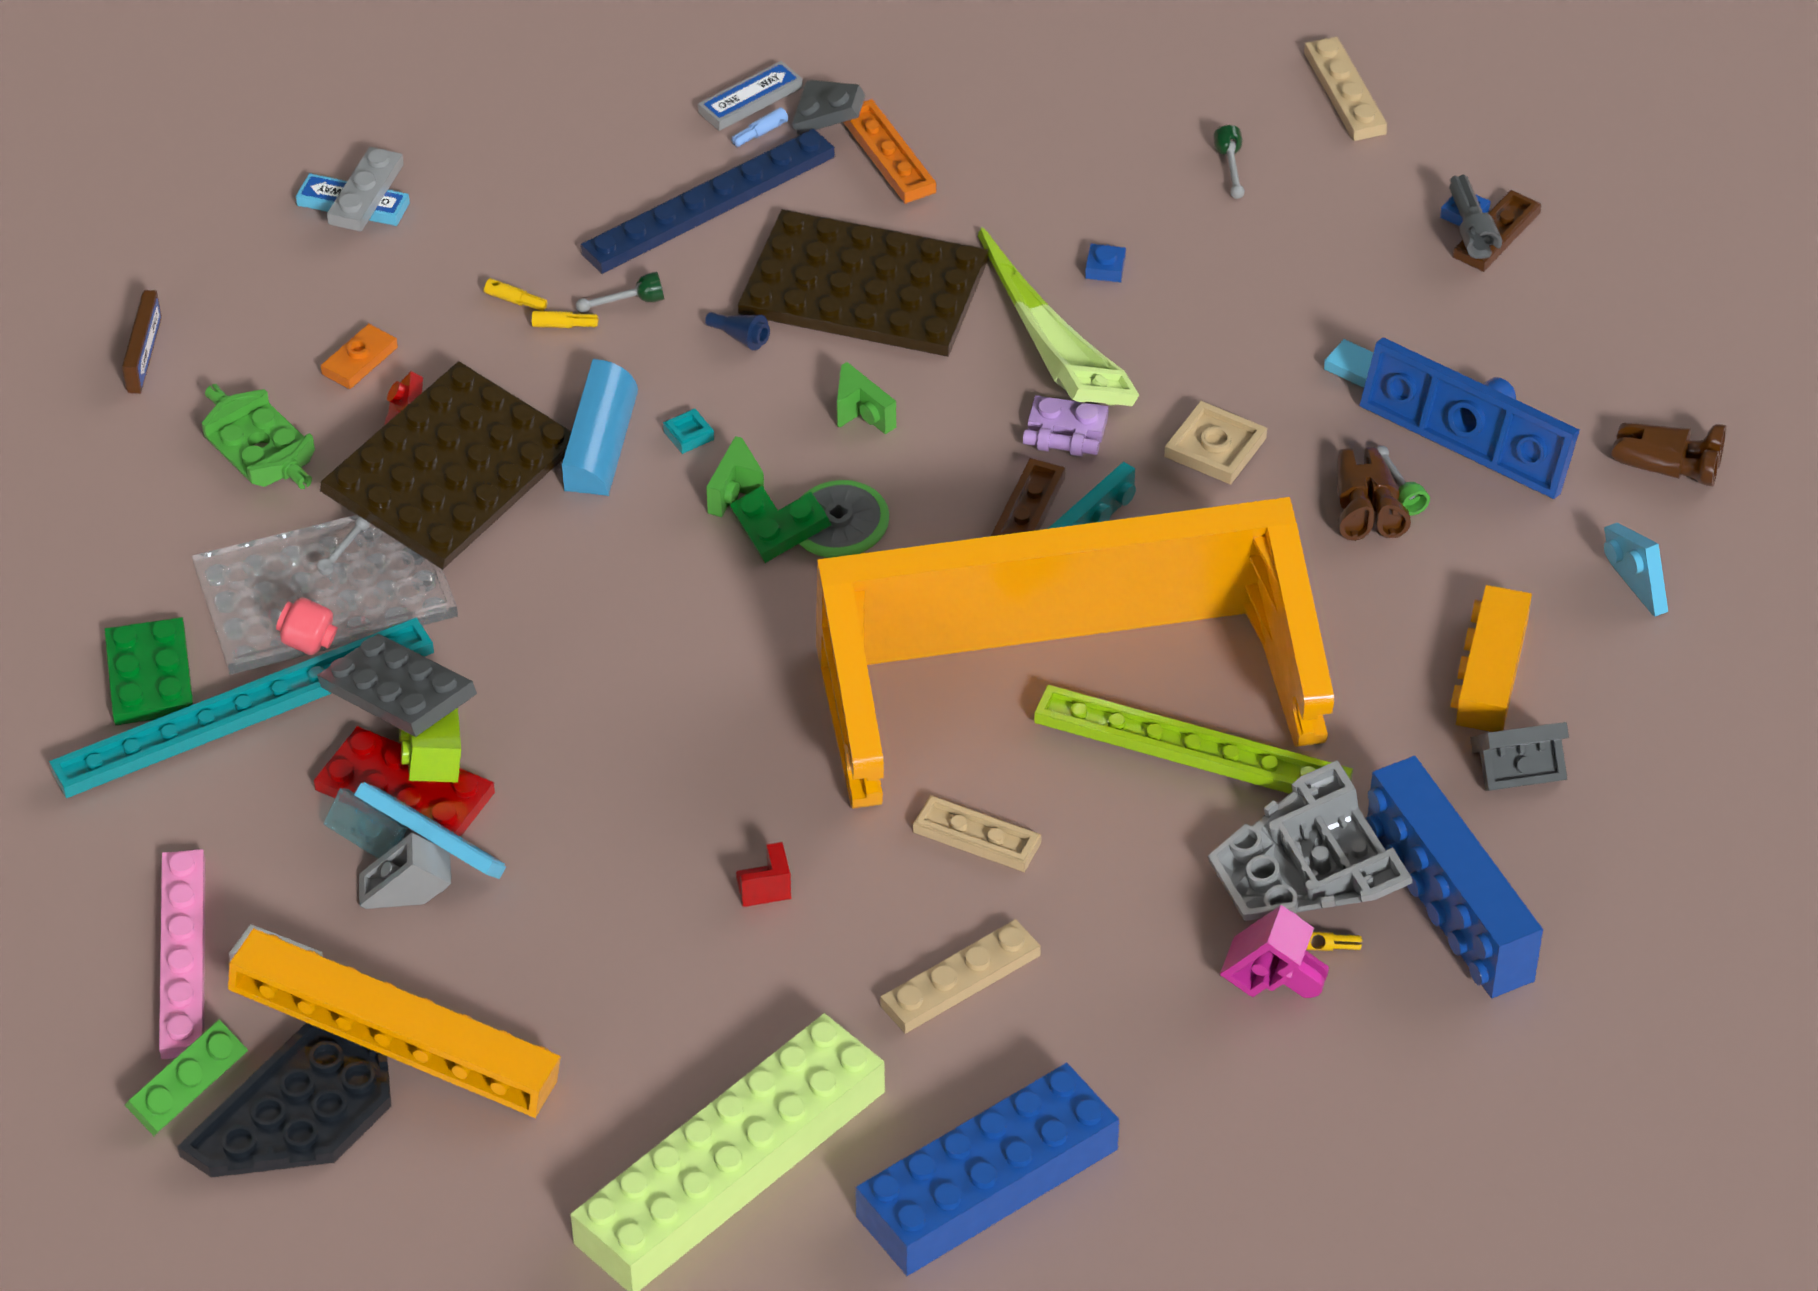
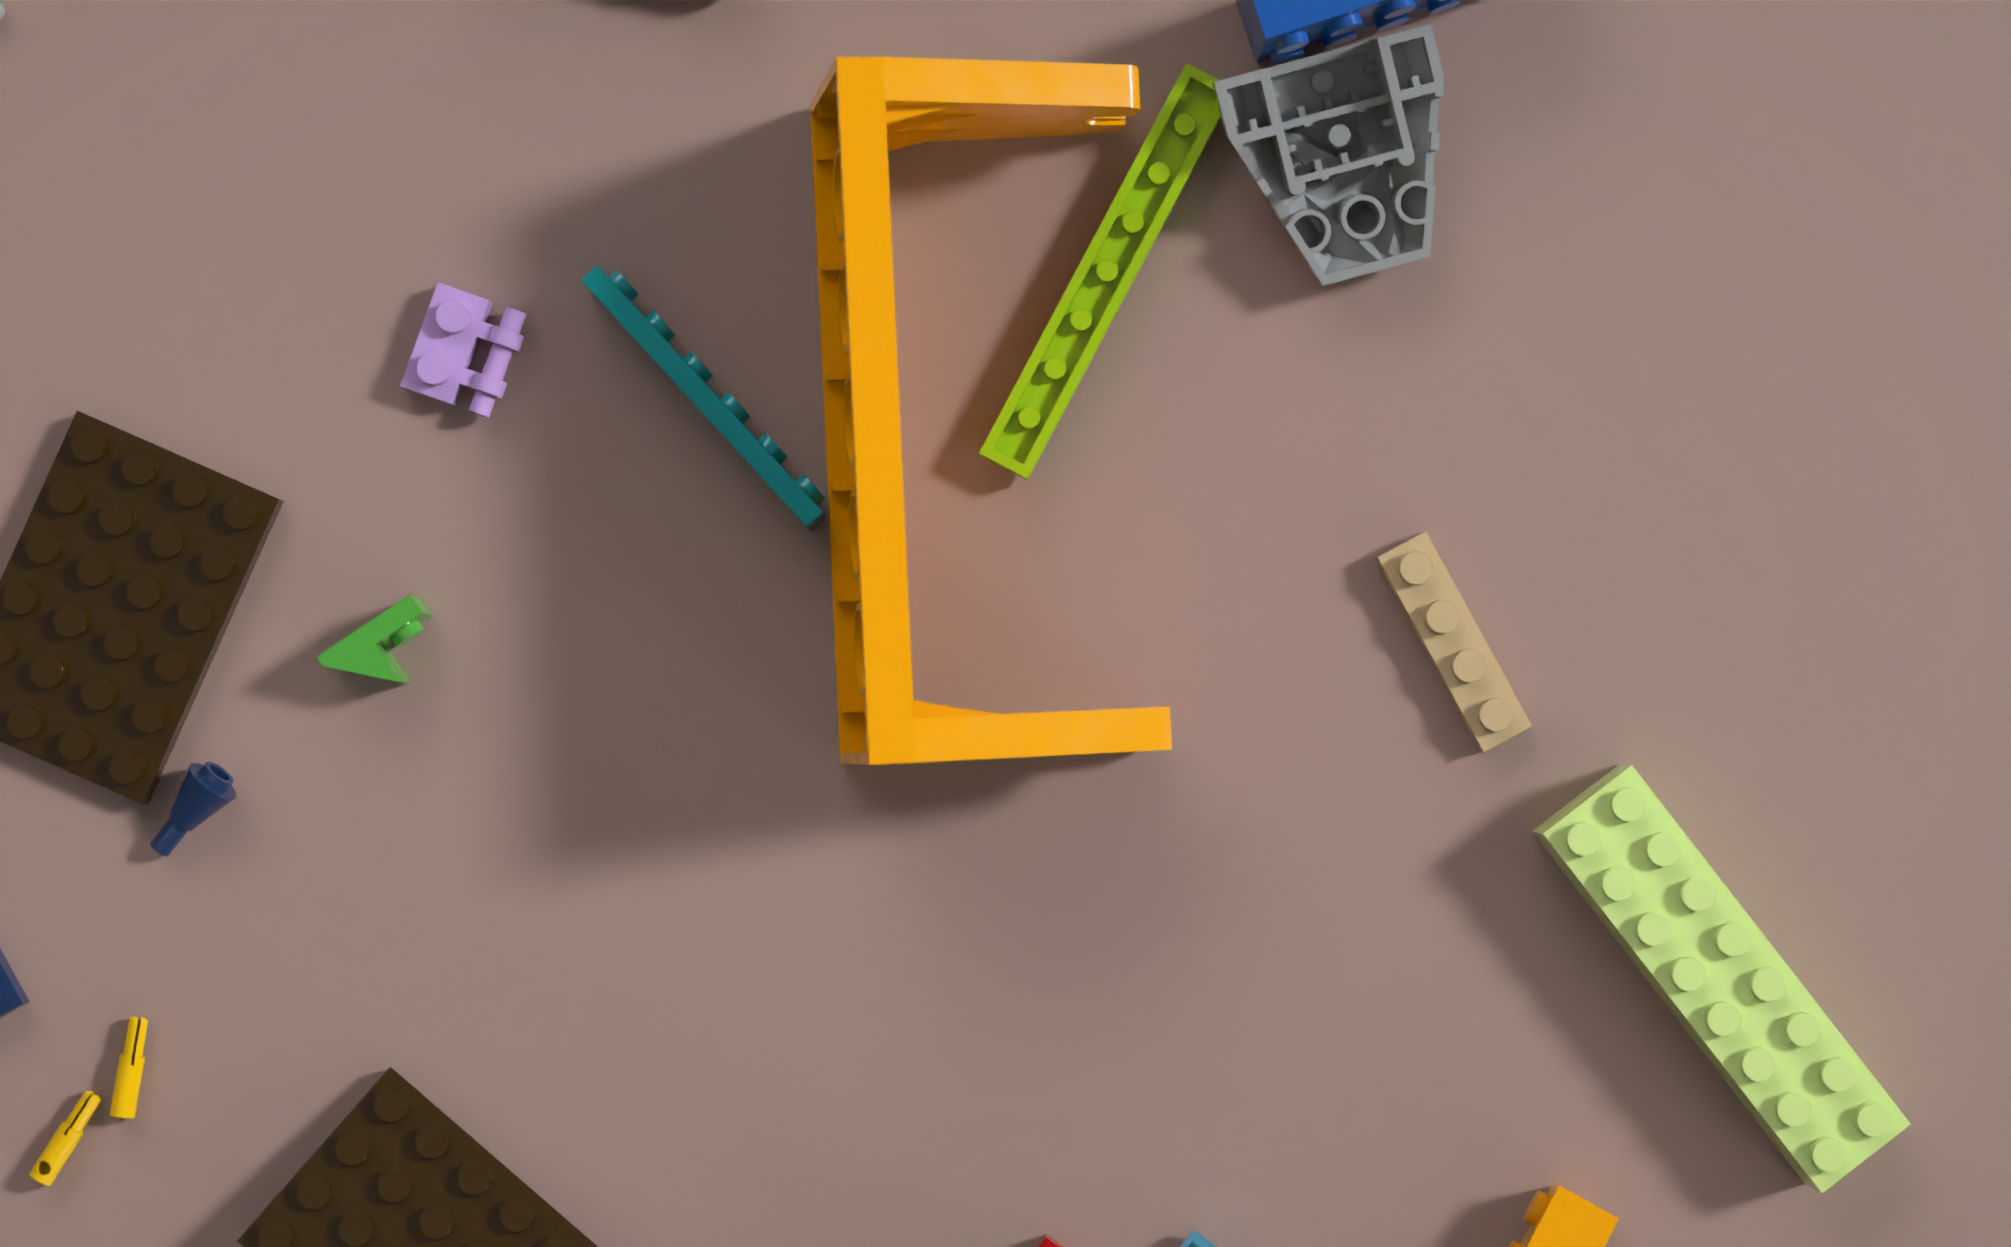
camera: 80 degrees left, 40 degrees up
(599, 429) = (380, 1034): dark azure brick -> none
(647, 289) = (87, 937): hinge -> none
(688, 431) = (392, 902): teal tile -> none
(734, 475) = (499, 843): bright green slope -> none
(766, 882) = (1263, 884): red panel -> none
(778, 530) = (620, 796): green plate -> none
(856, 518) = (577, 726): dark grey wheel -> none
(977, 833) = (1213, 586): tan tile -> none
(986, 1168) = (1786, 652): blue brick -> none
(1031, 498) = (623, 428): reddish brown plate -> none
(1068, 356) = (341, 318): yellowish green plate -> none
(1105, 263) = (123, 237): blue plate -> none
(1215, 442) = (533, 138): tan plate -> none
(1274, 955) = (1510, 235): dark pink brick -> none
(1329, 944) = (1457, 161): yellow pin -> none

